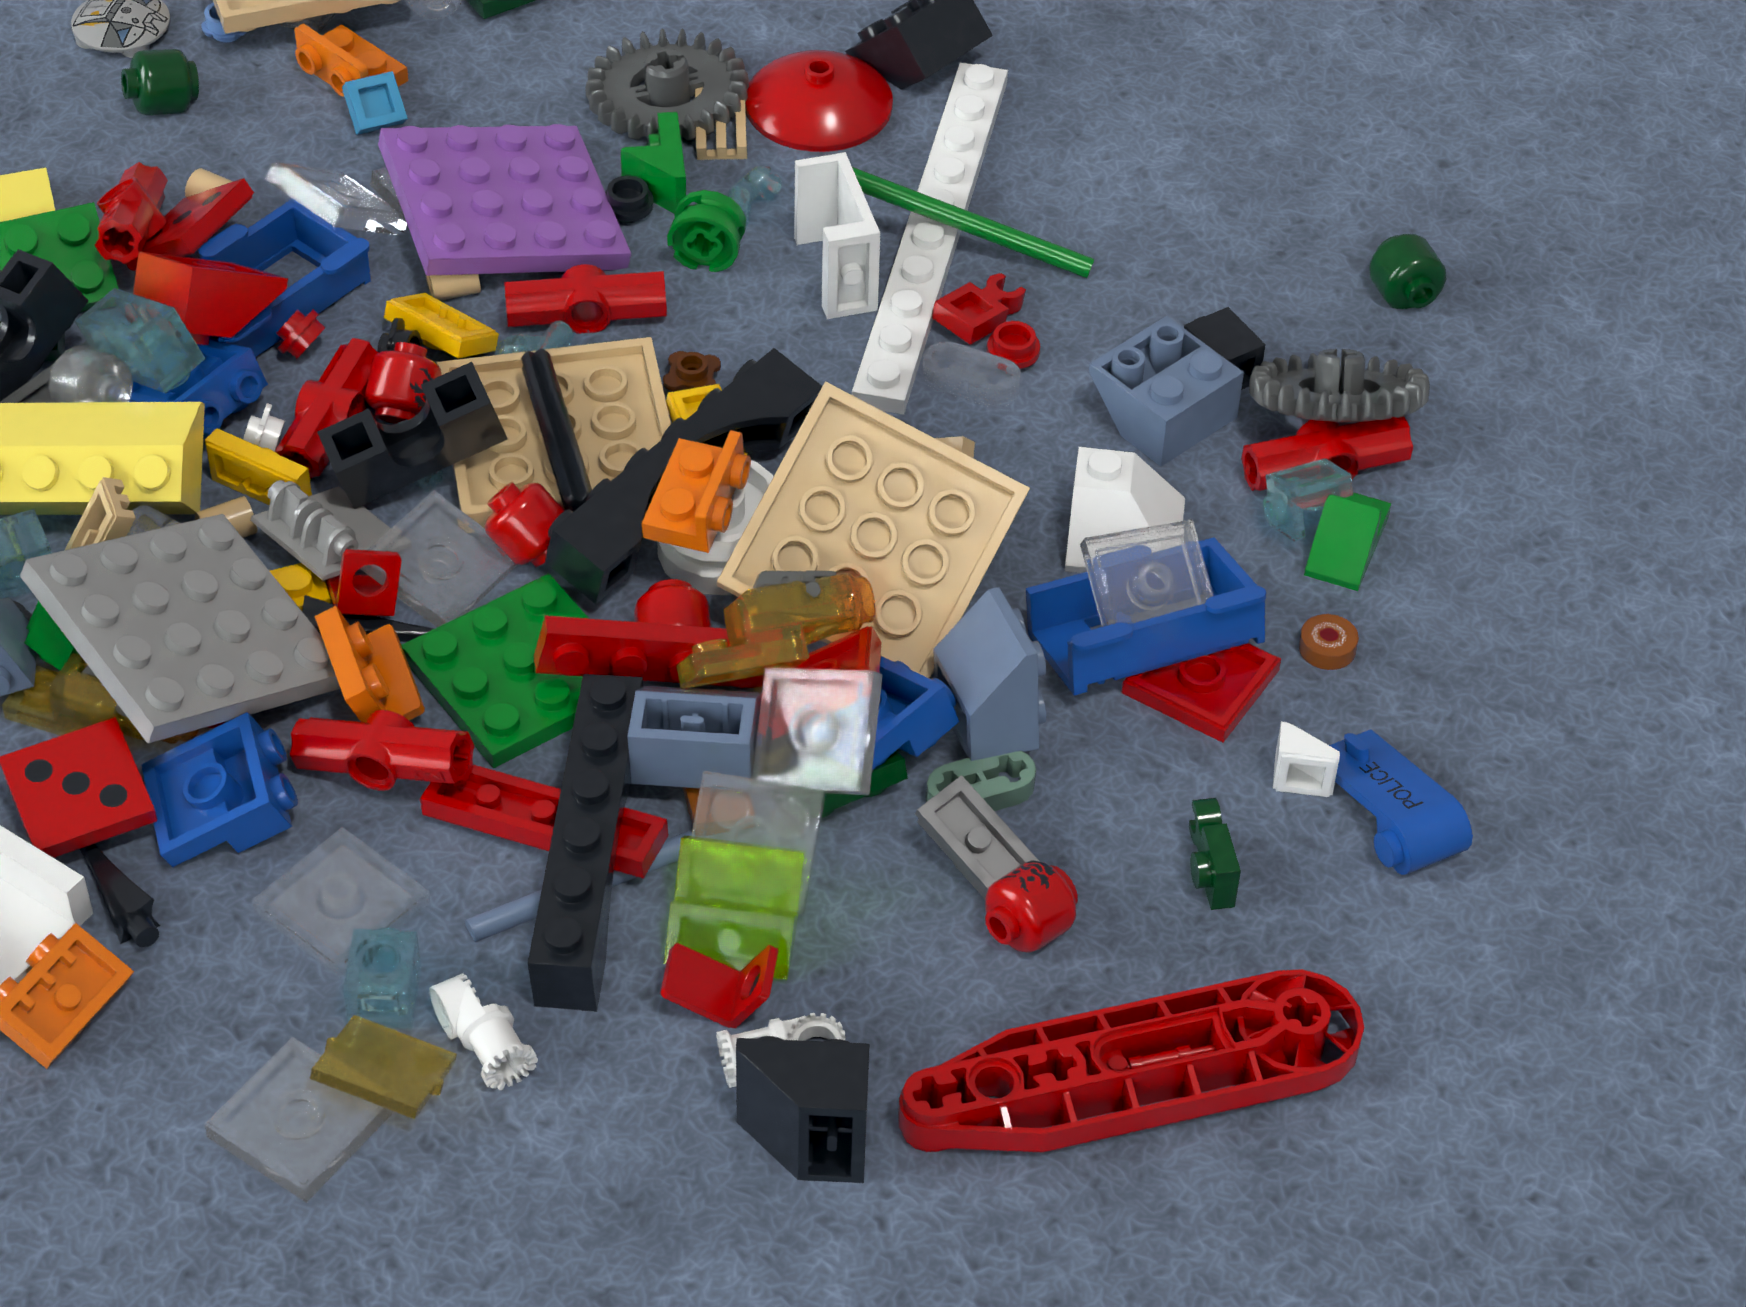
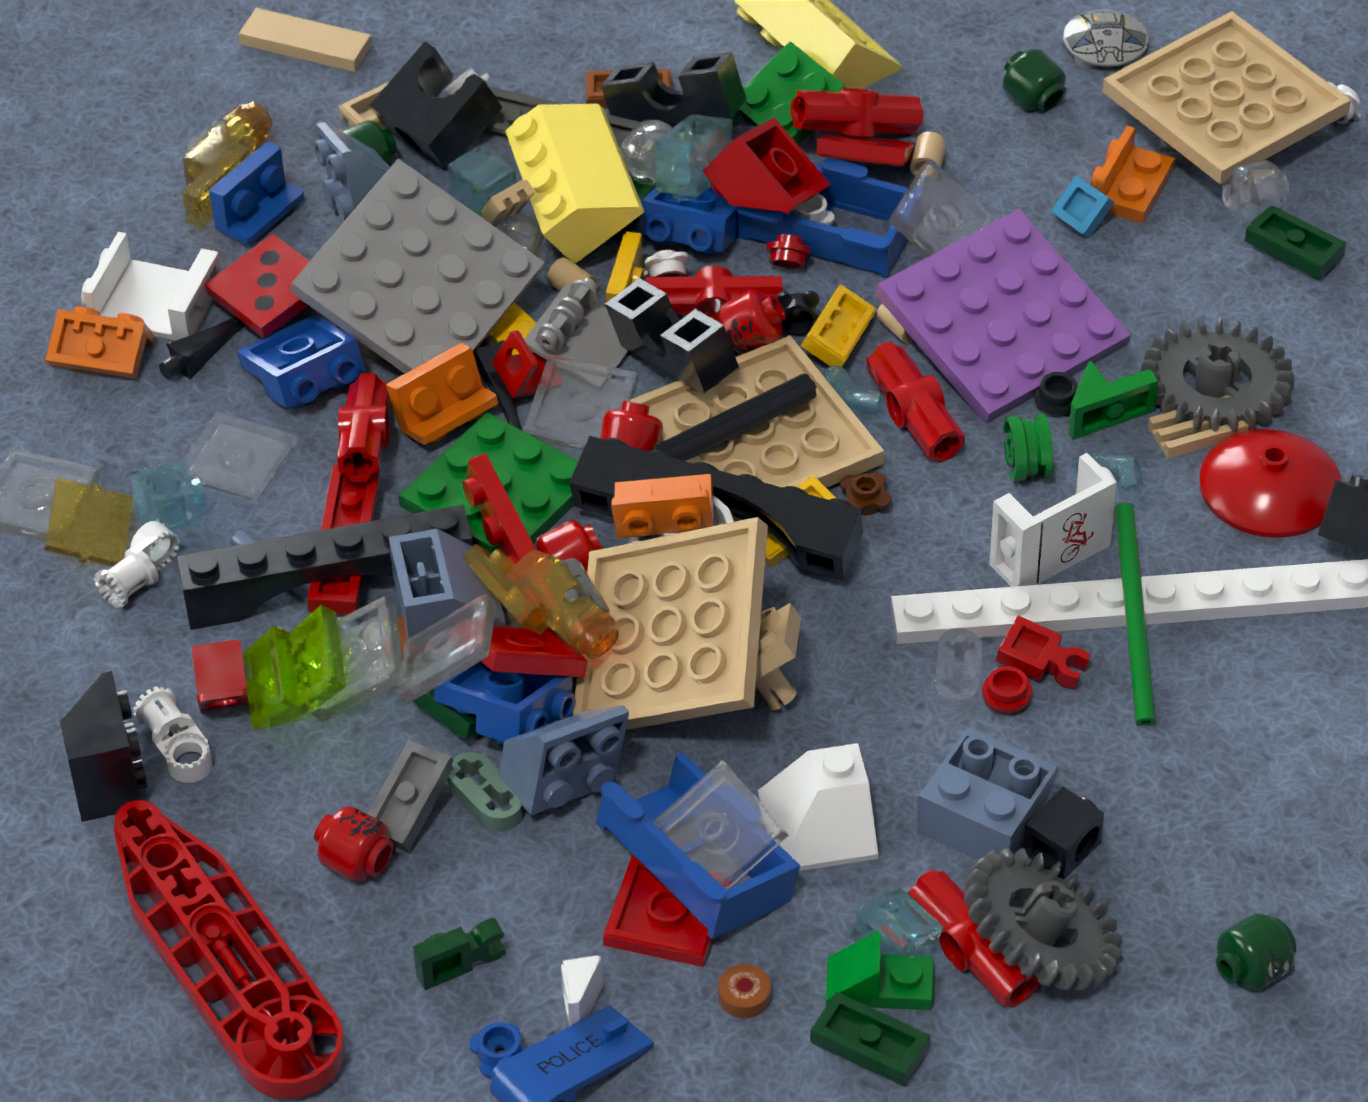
camera: 75 degrees right, 0 degrees up
(1347, 839) = (493, 1037): none -> blue plate
(1425, 560) = (870, 1038): none -> dark green plate

